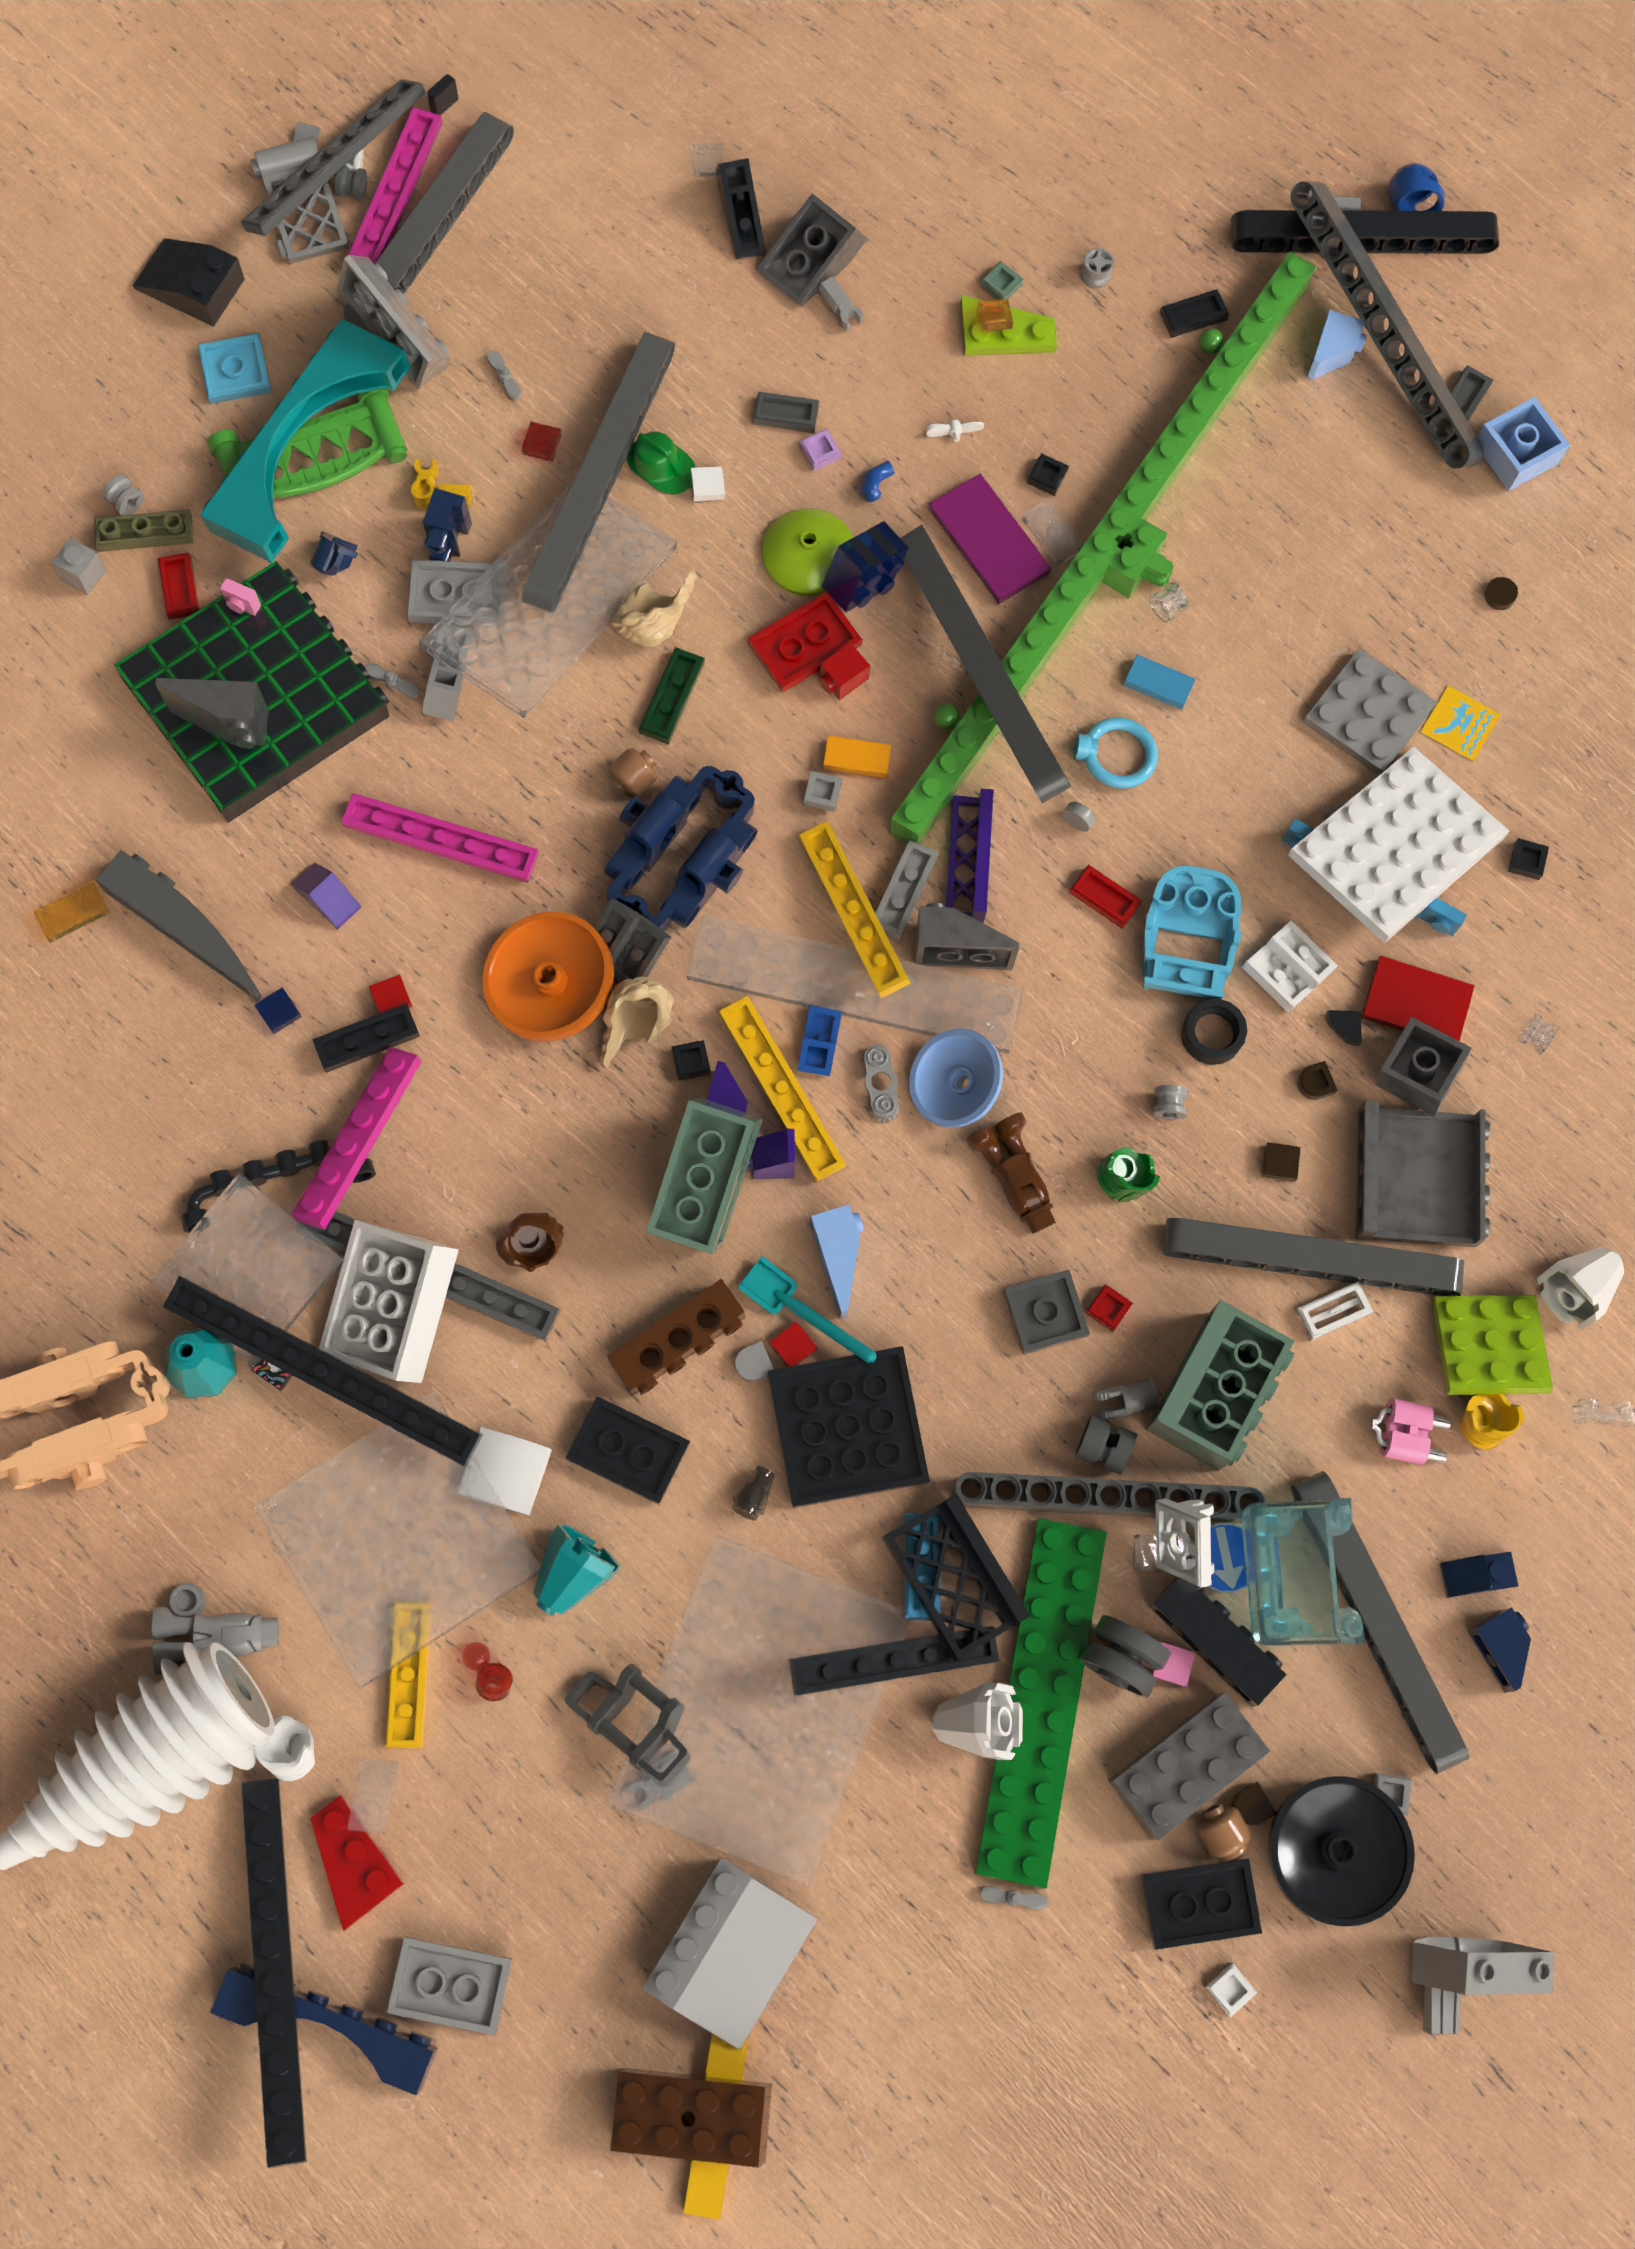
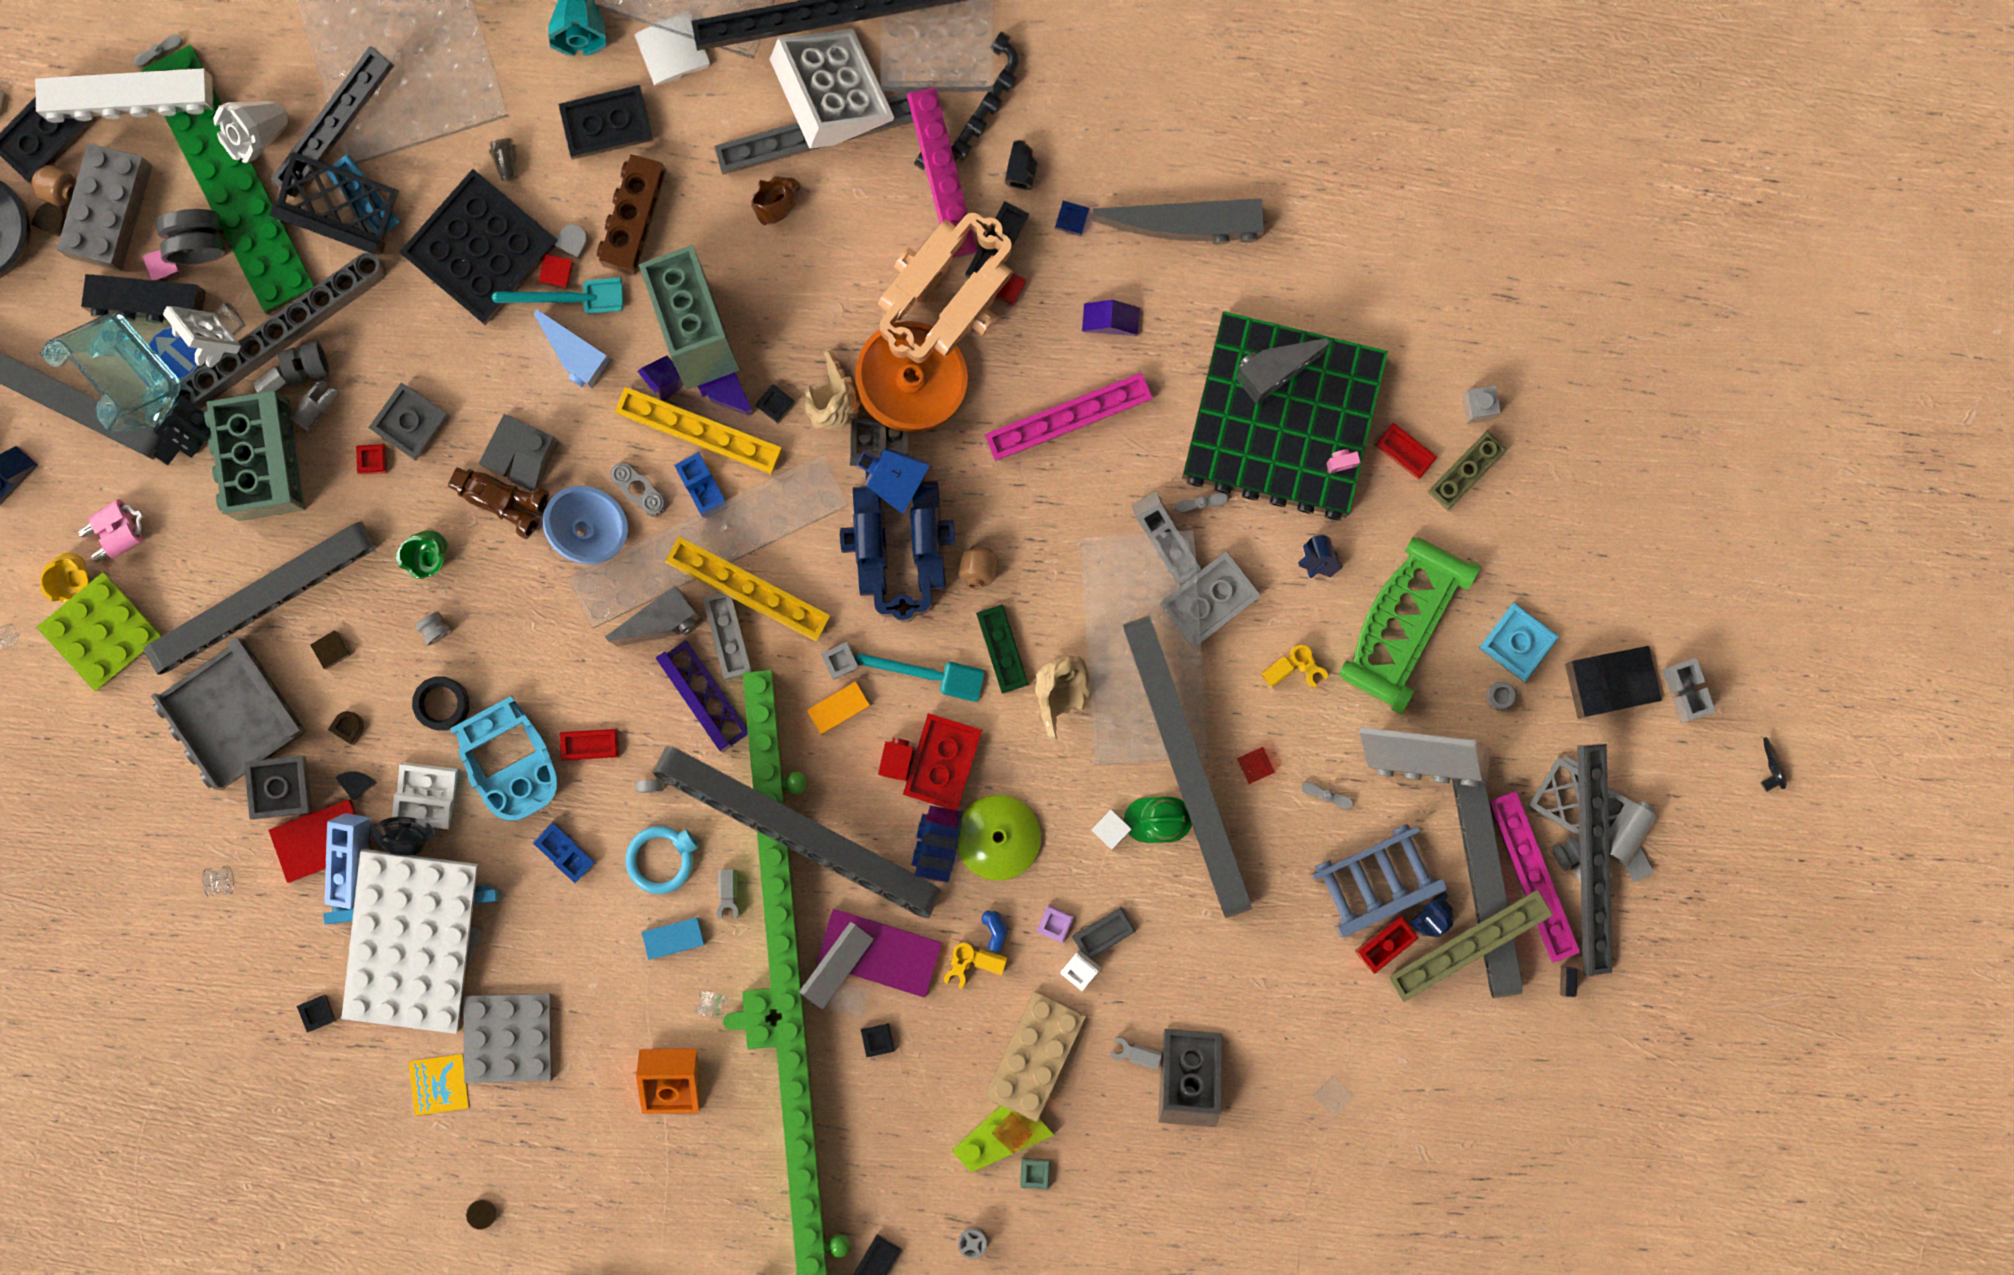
camera: 150 degrees right, 10 degrees up
(71, 912) = (1264, 172): clear yellow tile -> none
(123, 495) = (1501, 481): light grey wheel -> none
(127, 119) = (1778, 777): none -> black bar
(143, 211) = (1688, 703): none -> light grey piece
(280, 1090) = (1021, 167): none -> black rock
(289, 340) = (1501, 696): none -> light grey tile
(344, 366) = (1403, 532): teal arch -> none
(441, 991) = (924, 270): none -> light nougat piece
(443, 521) = (1260, 634): dark blue hips -> none
(494, 166) = (1471, 945): none -> olive plate
(503, 219) = (1435, 917): none -> dark blue piece
(530, 250) = (1401, 897): none -> sand blue fence
(561, 228) = (1386, 944): none -> red brick
(639, 884) = (893, 476): none -> blue torso
(733, 696) = (956, 680): none -> teal piece
(740, 207) = (1271, 1070): black slope -> none
(830, 396) = (1080, 970): none -> white tile
(917, 480) = (965, 953): none -> yellow bar
(926, 360) = (1034, 1057): none -> tan plate
(953, 428) = (973, 1020): white piece -> none
(954, 1184) = (532, 457): none -> dark grey slope
(972, 1220) = (502, 446): none -> dark grey tile
(1035, 544) = (836, 965): none -> light grey tile
(1080, 681) = (727, 892): none -> light grey bar
(1084, 1864) = (124, 94): none -> white brick
(1153, 1455) = (269, 381): none -> white tile
(1200, 823) = (563, 852): none -> blue slope
(1253, 571) = (668, 1080): none -> orange slope
(1273, 1473) = (182, 430): none -> black piece
(1308, 1322) = (231, 581): white tile -> none
(1336, 934) = (402, 835): none -> black piece
(1405, 955) = (345, 840): none -> light blue slope
(1582, 1285) = (64, 721): white cone -> none

